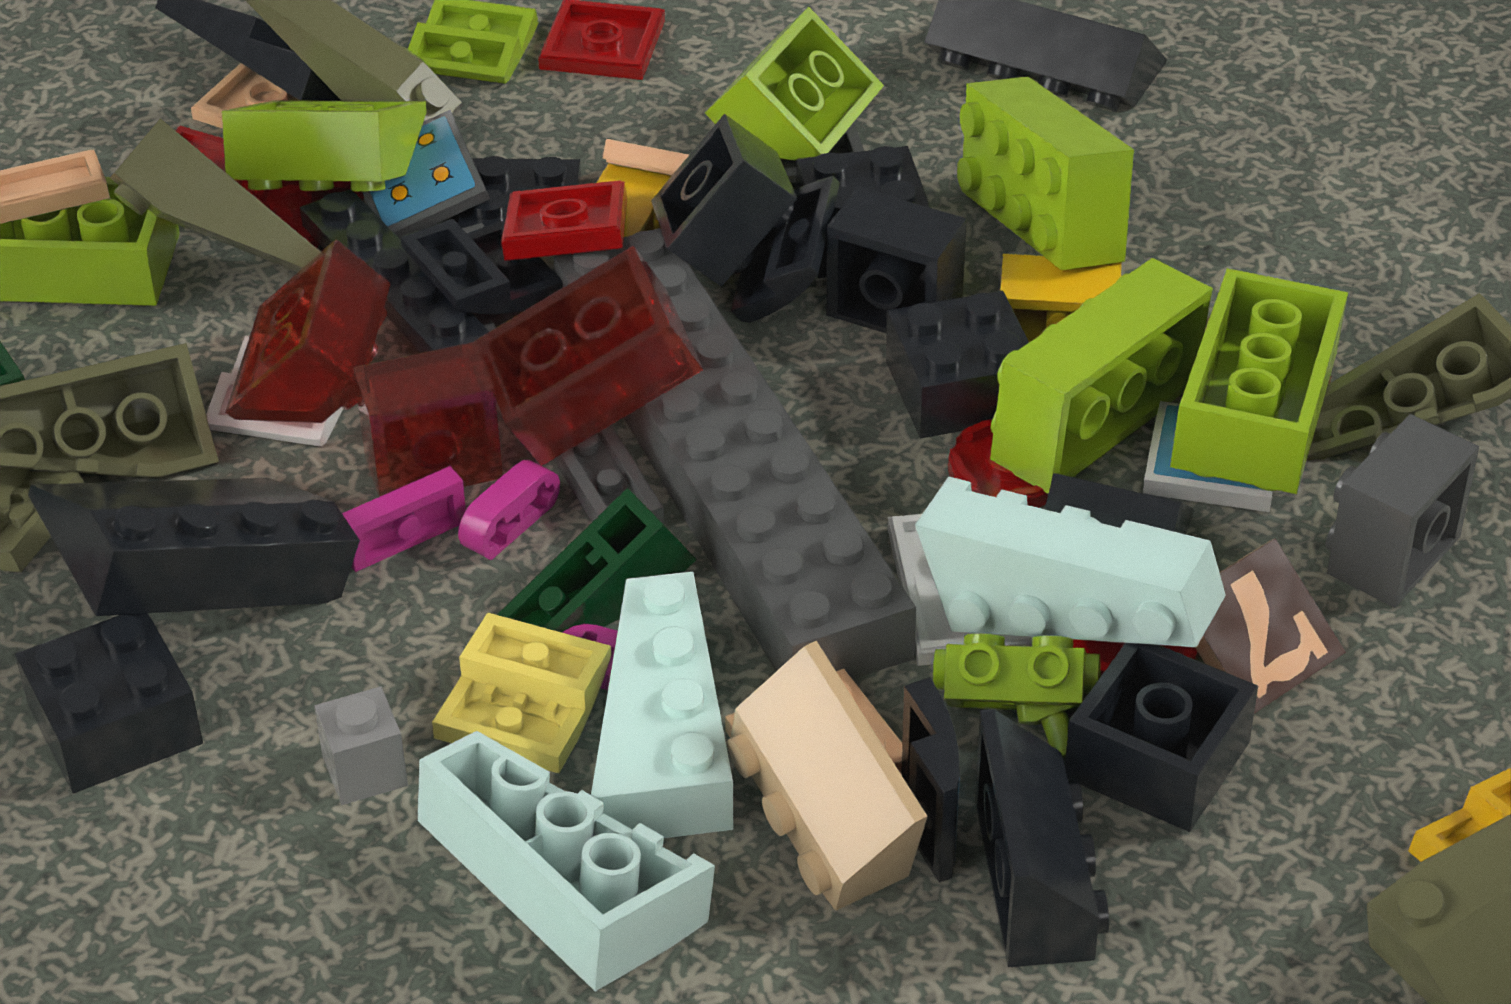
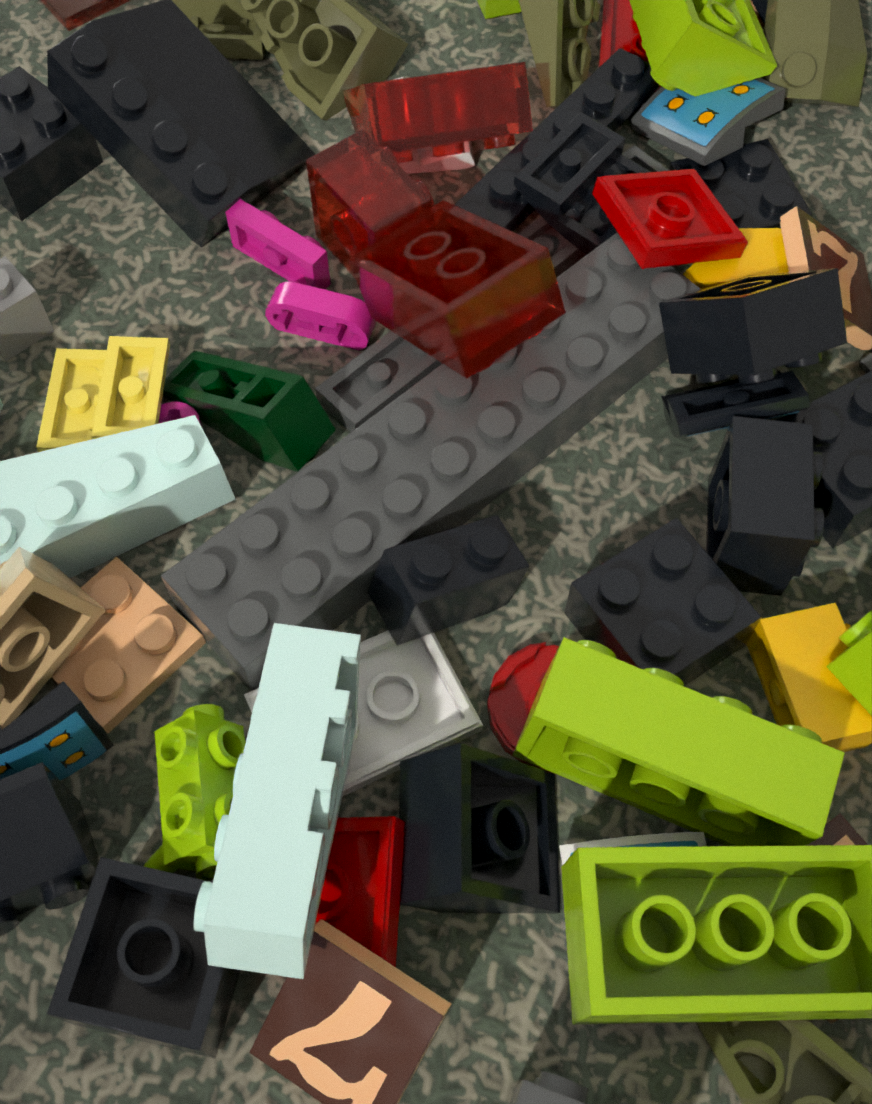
camera: 70 degrees right, 20 degrees up
(875, 470) = (446, 578): none -> black brick

